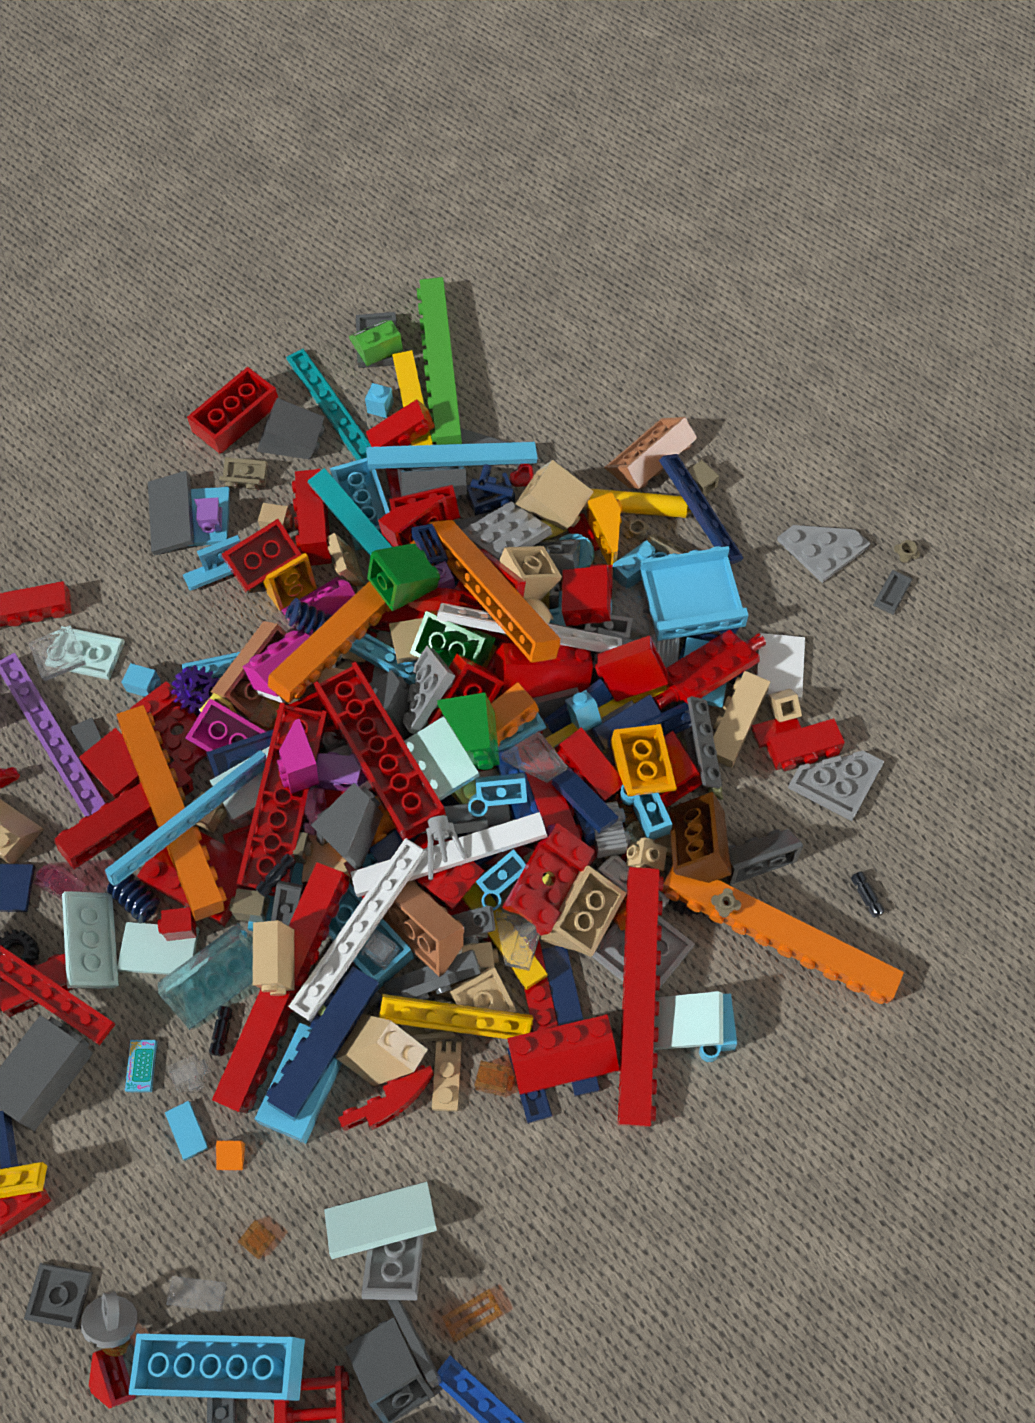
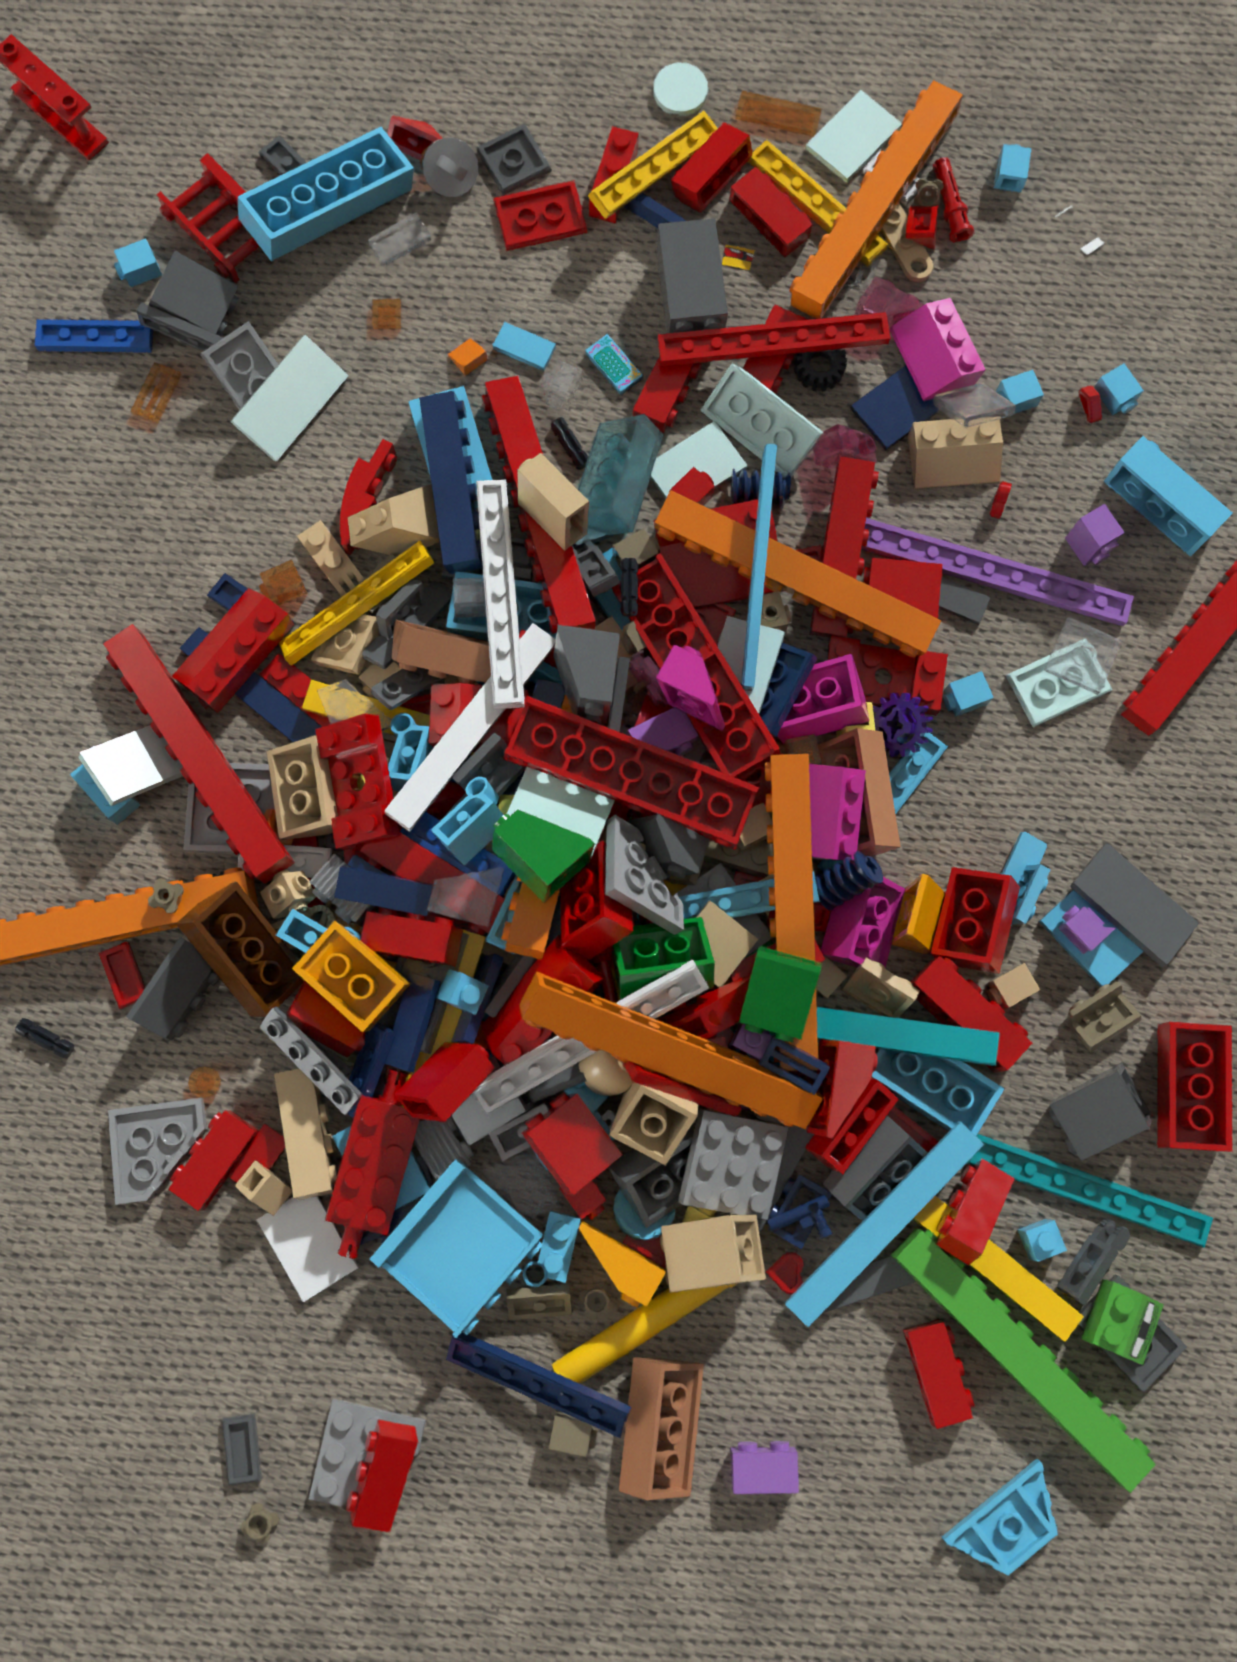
camera: 135 degrees right, 15 degrees up
(83, 1229) = (540, 215): none -> red tile
(131, 1013) = (664, 391): none -> red brick
(364, 376) = (1093, 1260): none -> dark grey hinge
(439, 830) = (493, 730): light grey plant -> none
(487, 382) = (939, 1373): none -> red brick
(511, 307) = (1009, 1523): none -> medium azure wing
(613, 401) = (764, 1468): none -> medium lavender brick
(780, 795) = (204, 1082): none -> clear orange tile
(790, 893) = (123, 974): none -> red tile
(819, 521) = (382, 1475): none -> red brick

